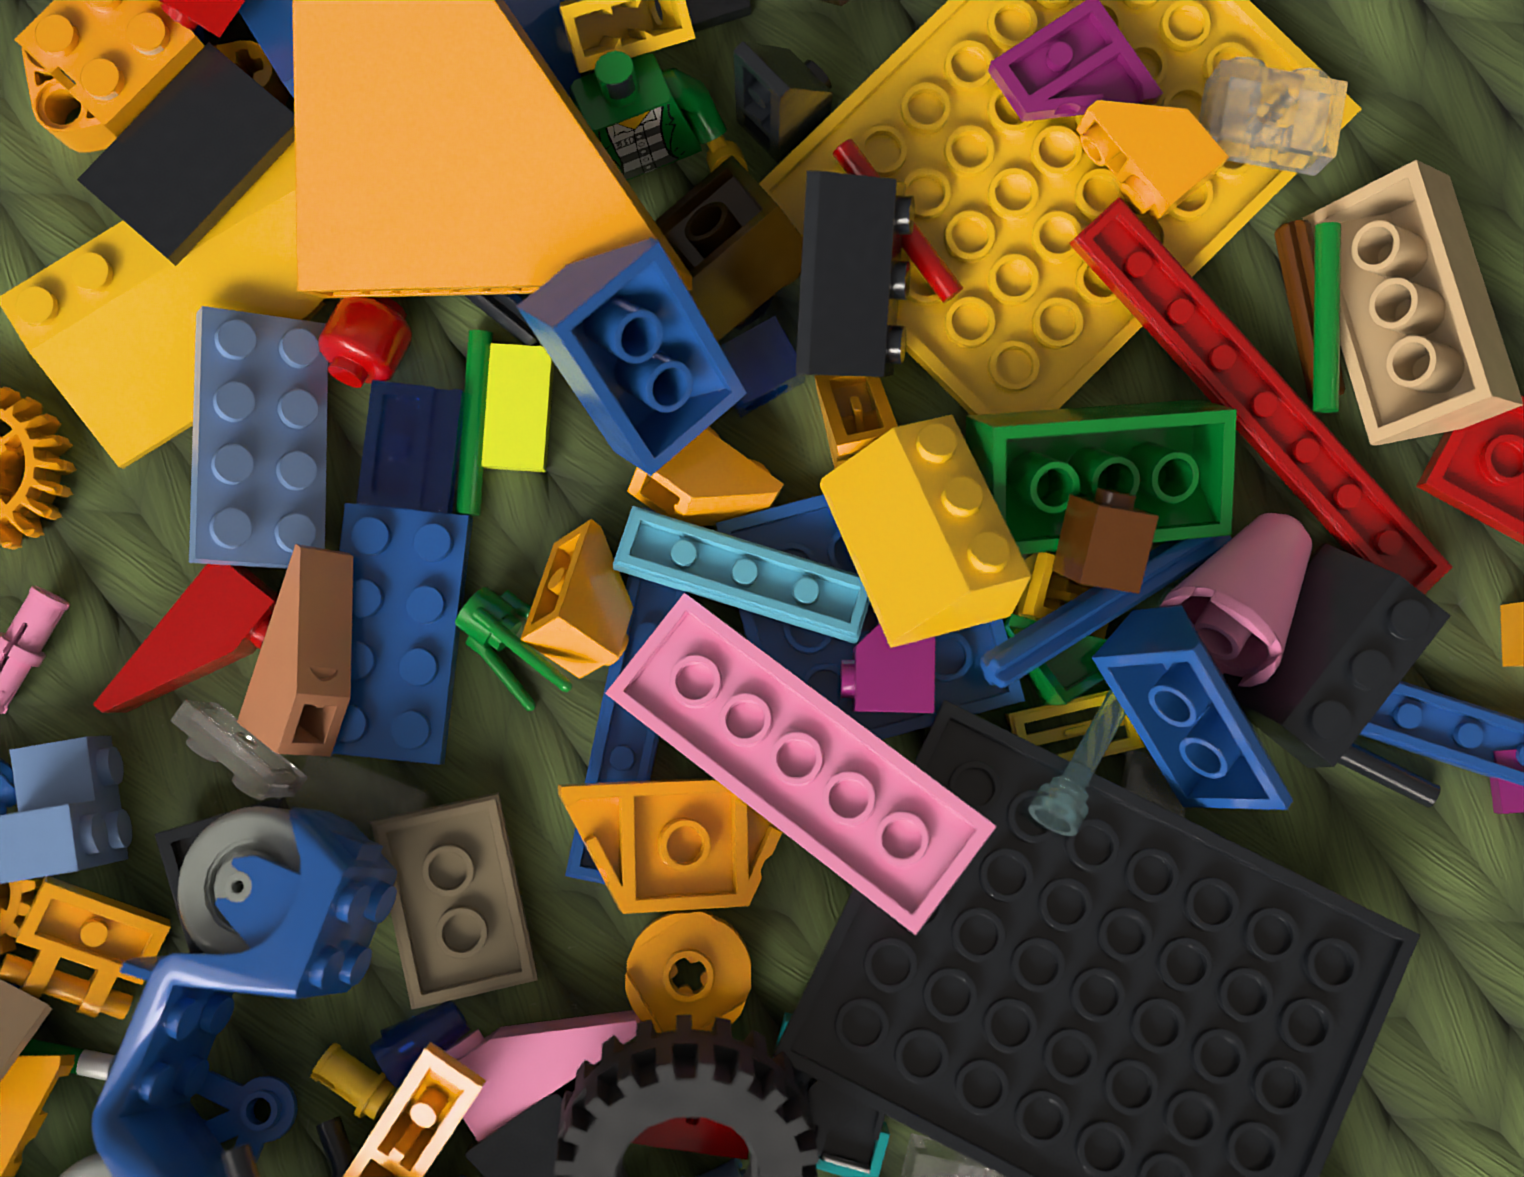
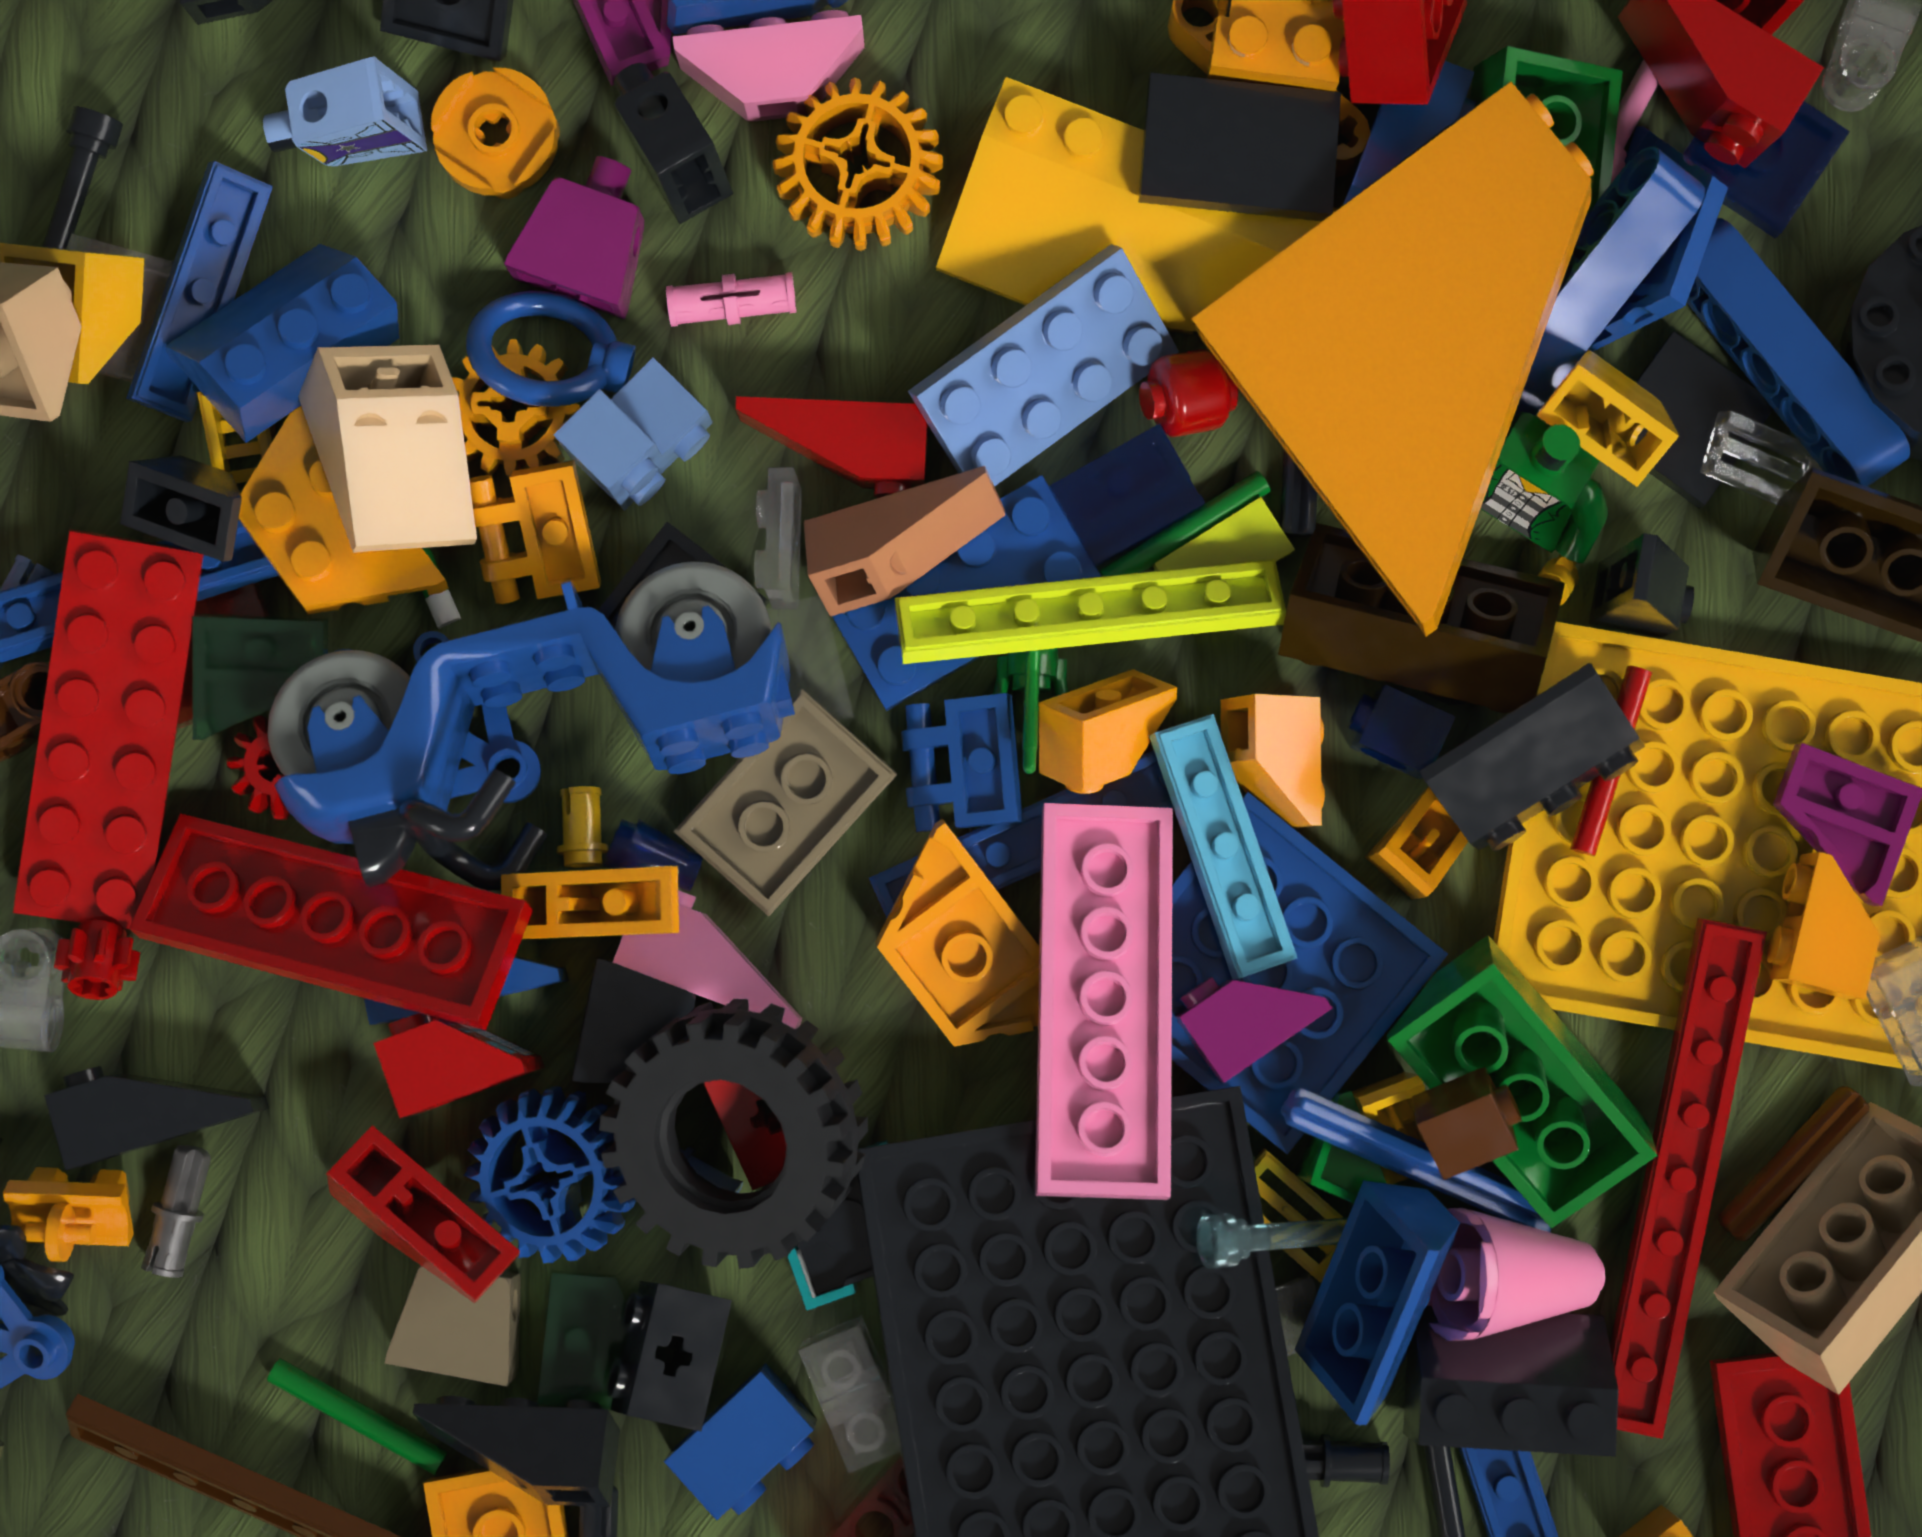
camera: 55 degrees right, 0 degrees up
(474, 551) = (1089, 611): none -> neon yellow tile
(538, 719) = (980, 759): none -> blue plate
(634, 351) = (1340, 629): blue slope -> none
(697, 938) = (896, 1022): light orange plate -> none
(925, 533) = (1366, 969): yellow slope -> none
(1298, 829) = (1346, 1461): none -> black axle
(1327, 317) = (1795, 1180): green bar -> none

